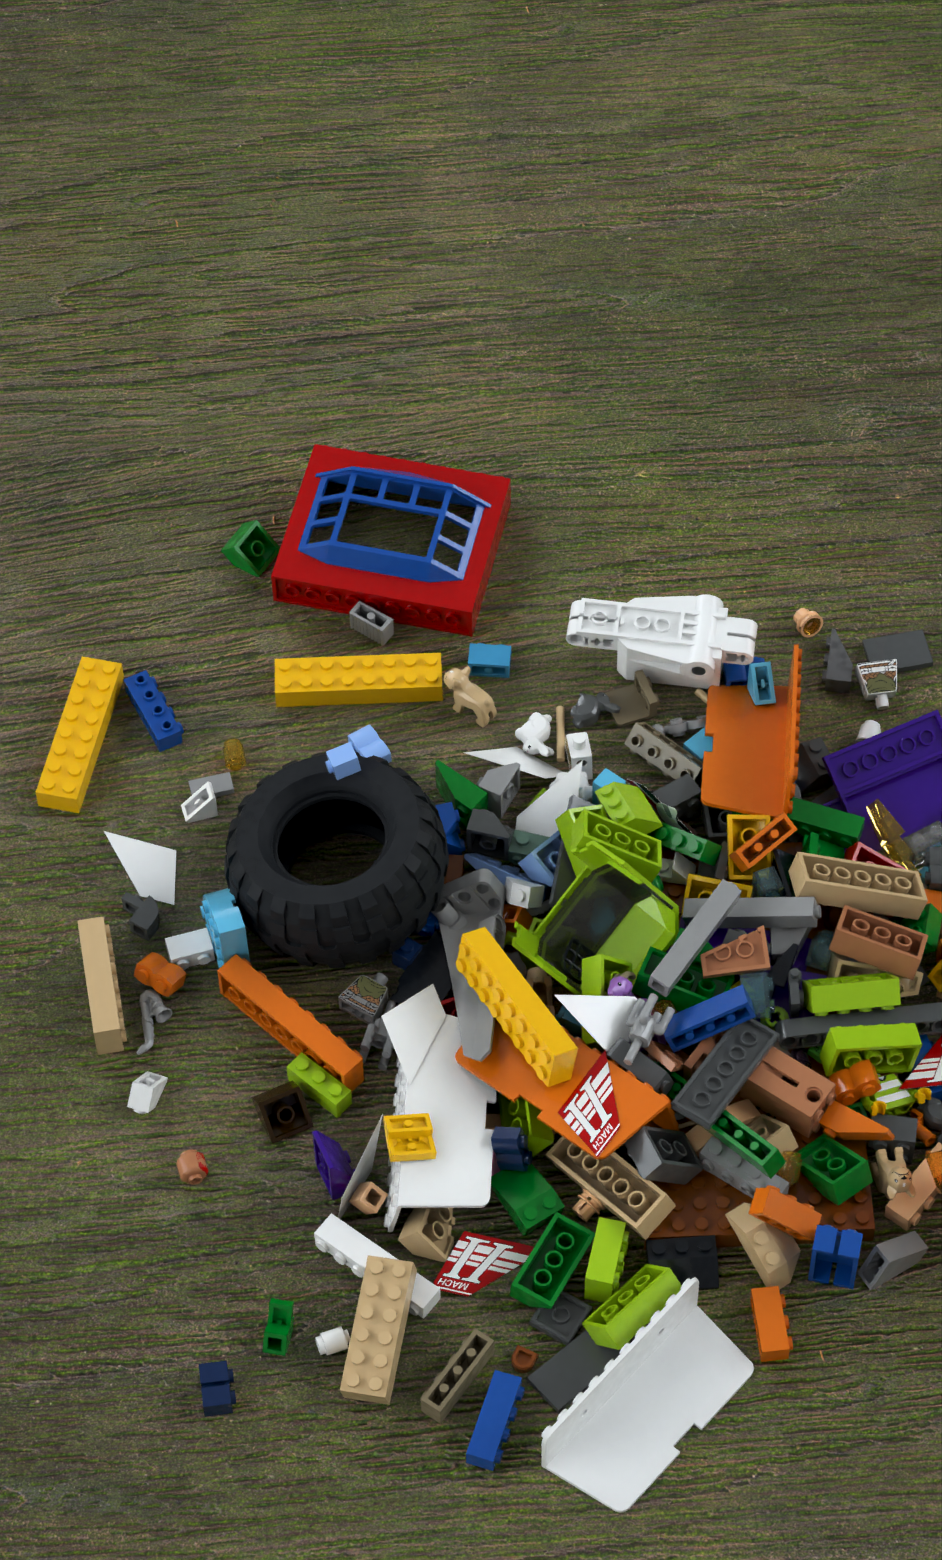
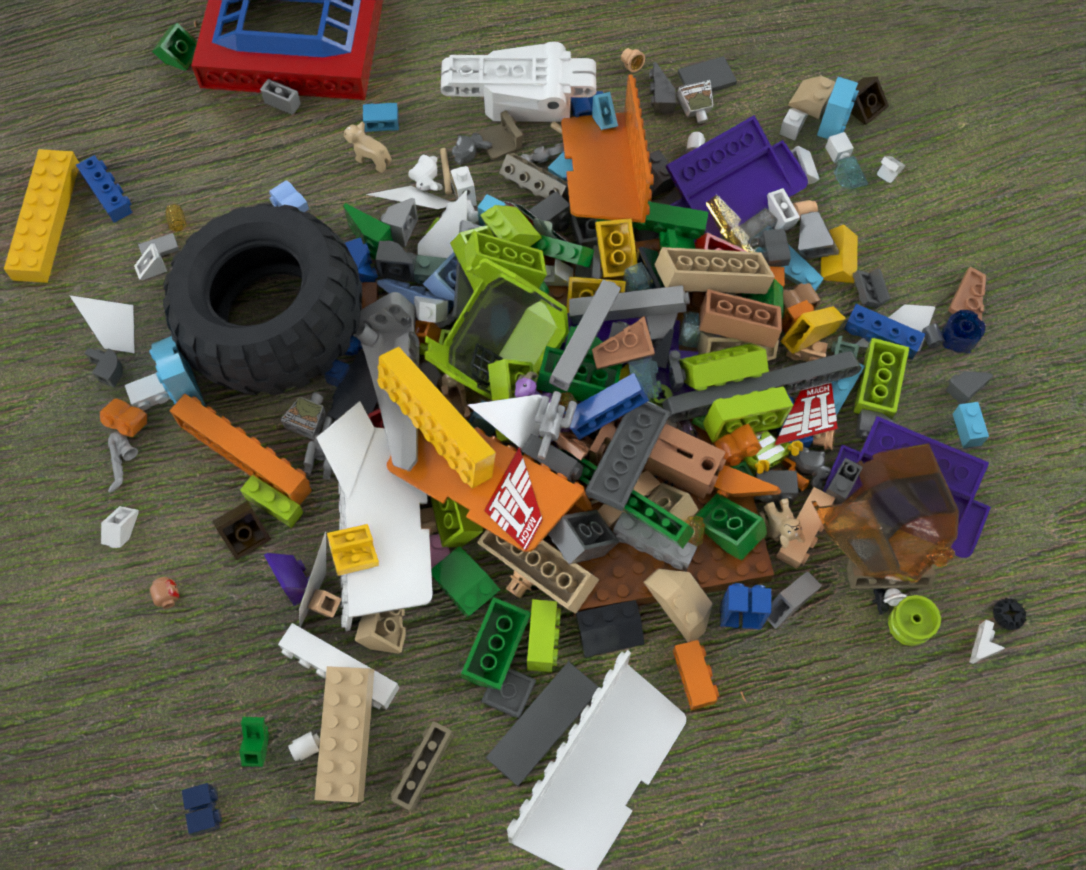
camera: 10 degrees left, 10 degrees up
(102, 985) = (70, 435): tan brick -> none
(342, 761) = (256, 212): light blue brick -> none
(358, 679) = (273, 144): yellow brick -> none
(478, 1262) = (429, 649): sticker -> none
(494, 1420) = (460, 807): blue brick -> none
(511, 1148) = (446, 543): dark blue brick -> none
(523, 1359) = (480, 738): dark orange tile -> none
(631, 1306) = (573, 680): lime brick -> none
(763, 842) = (629, 242): orange brick -> none
(785, 1213) = (698, 576): orange brick -> none

